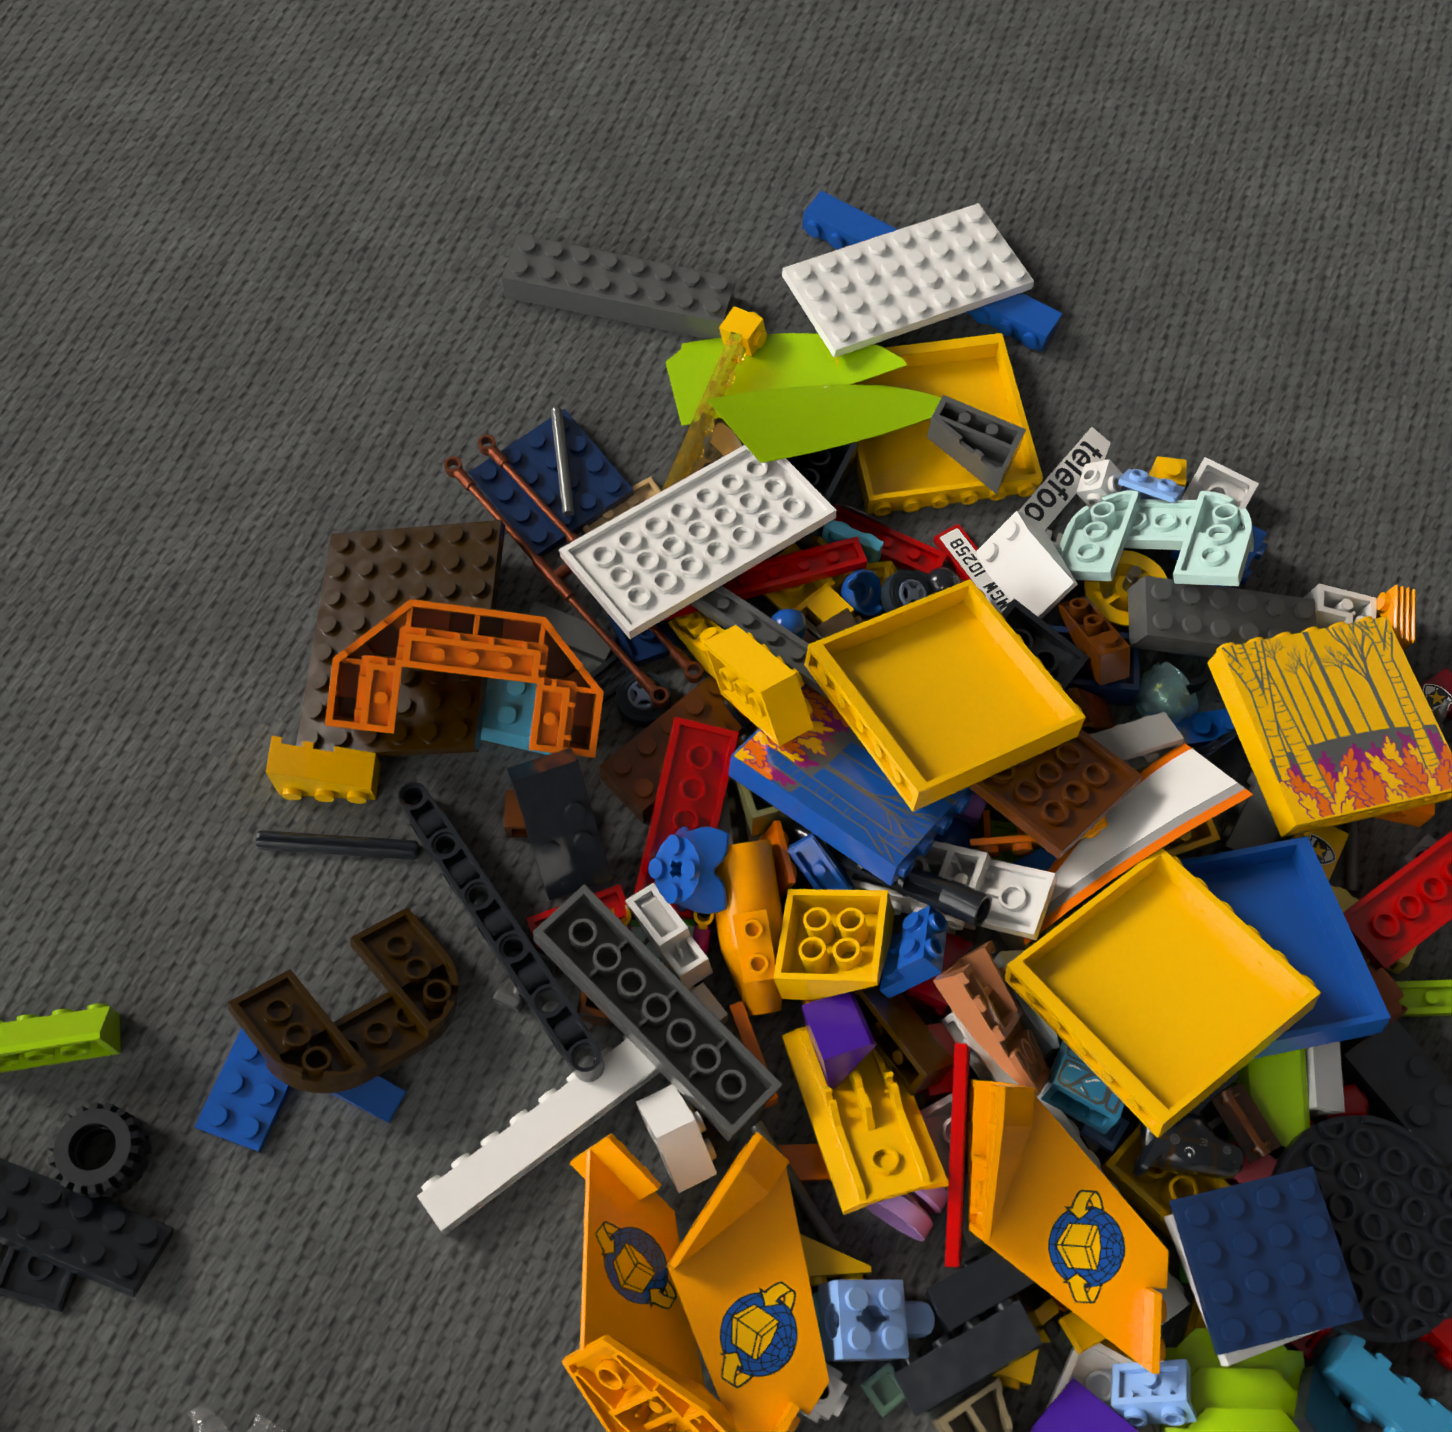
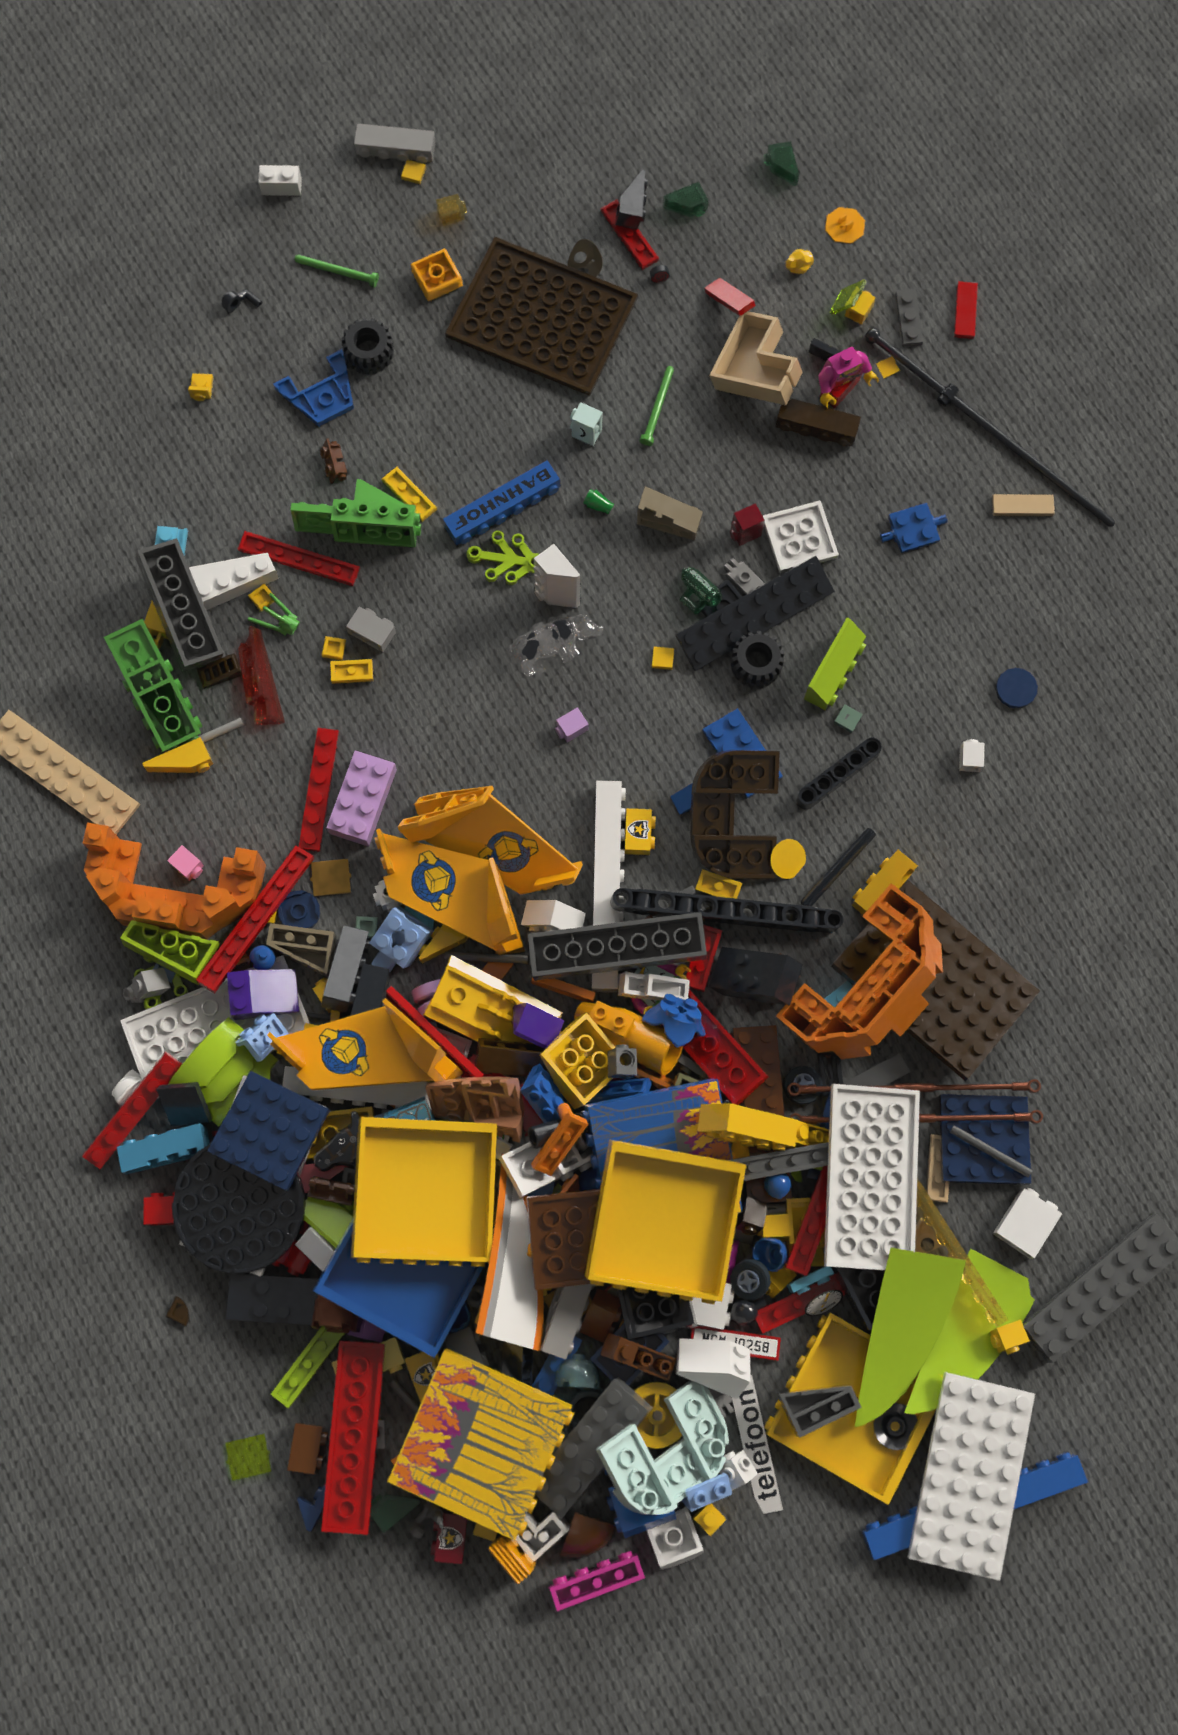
camera: 130 degrees right, 10 degrees up
(30, 1314) = (701, 587): none -> clear green piece
(67, 789) = (971, 756): none -> white brick
(112, 975) = (848, 718): none -> sand green tile
(182, 1291) = (663, 658): none -> yellow tile
(191, 920) = (843, 765): none -> black beam
(369, 909) = (788, 858): none -> yellow sticker
(380, 1338) = (571, 725): none -> lavender brick
(470, 1120) = (638, 831): none -> yellow brick
(471, 966) = (718, 885): none -> yellow plate
(608, 389) = (1027, 1223): none -> white brick
(795, 876) = (615, 1068): none -> dark grey brick
(931, 373) = (882, 1427): none -> black dish
(954, 872) = (560, 1141): none -> orange piece
(1295, 570) = (587, 1536): none -> reddish brown brick
(1327, 535) = (597, 1581): none -> dark pink brick

